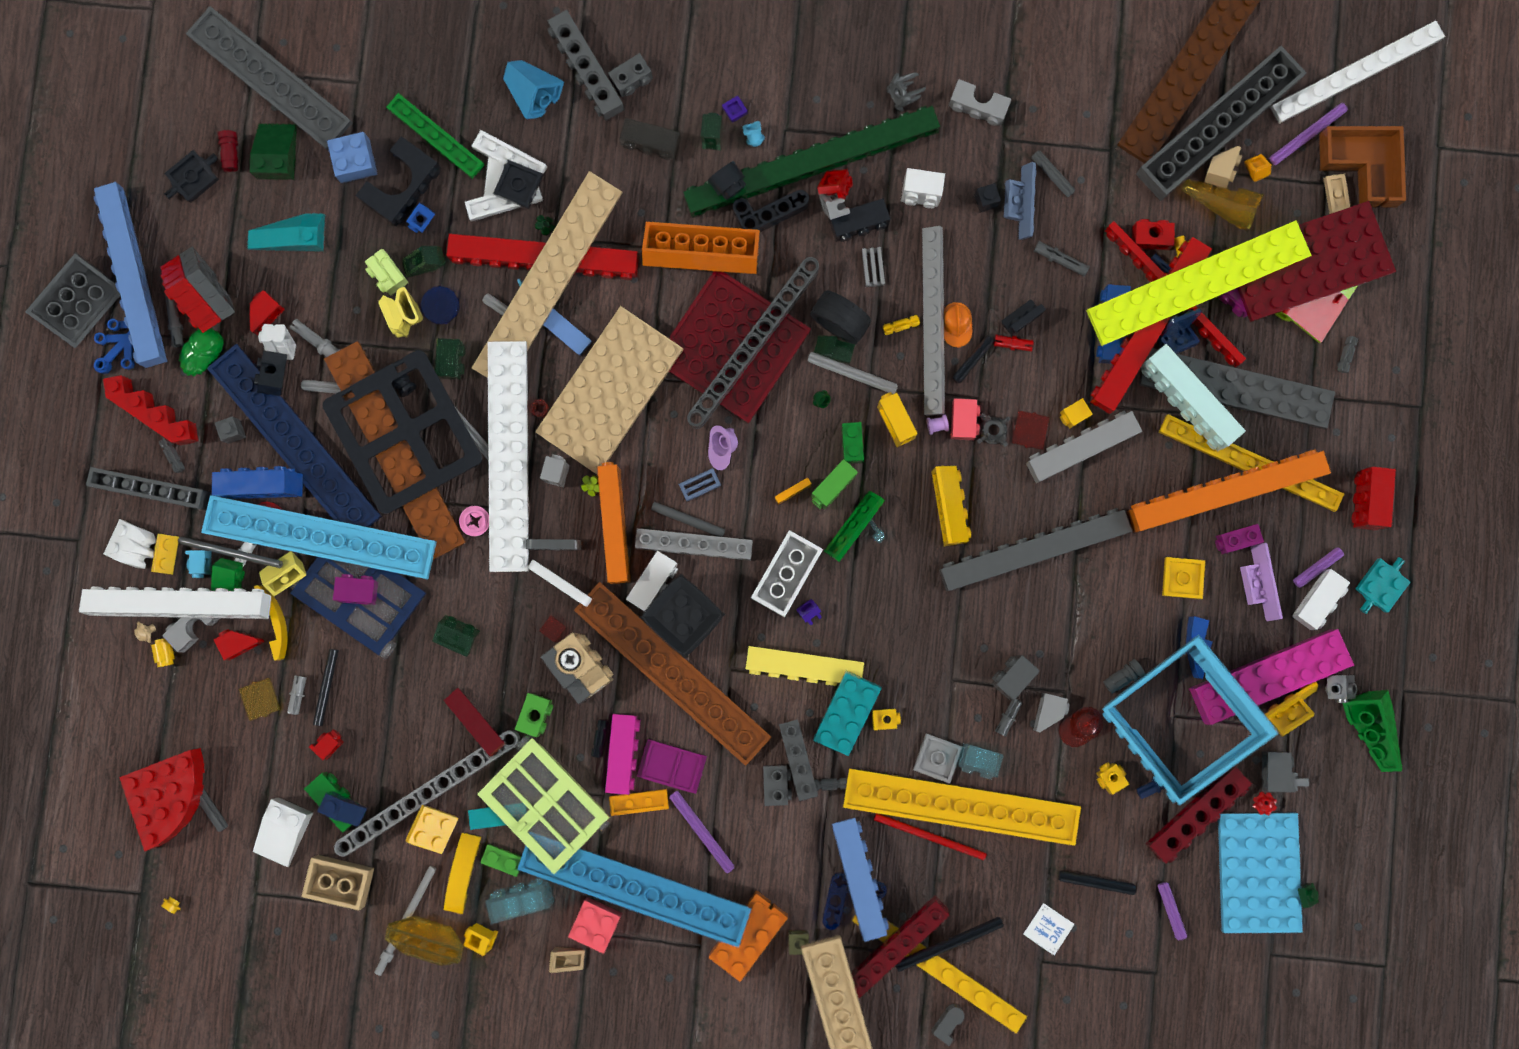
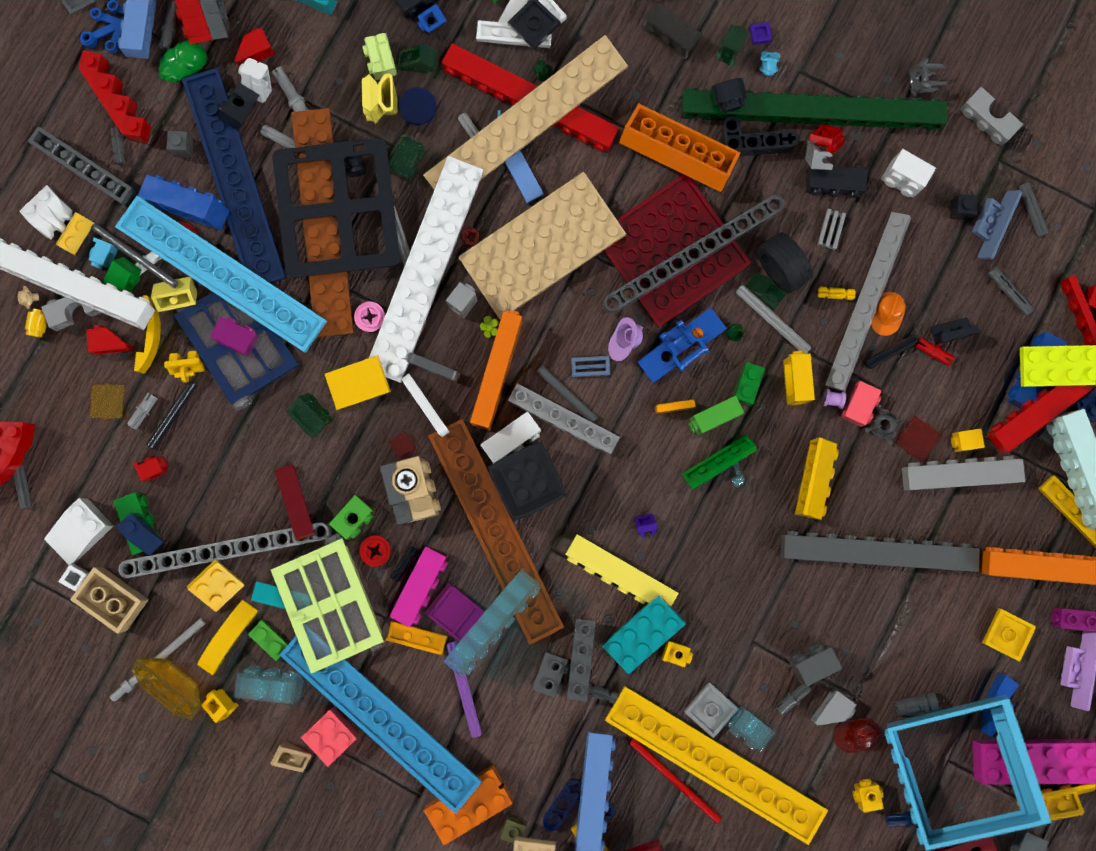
camera: 15 degrees right, 0 degrees up
(296, 875) = (73, 577): none -> white brick
(321, 638) = (184, 368): none -> yellow hips
(488, 587) = (357, 382): none -> yellow tile
(560, 742) = (366, 552): none -> red gear
(702, 757) = (489, 625): none -> clear light blue brick
(771, 428) = (680, 338): none -> blue piece
(786, 573) = (639, 481): white brick -> none

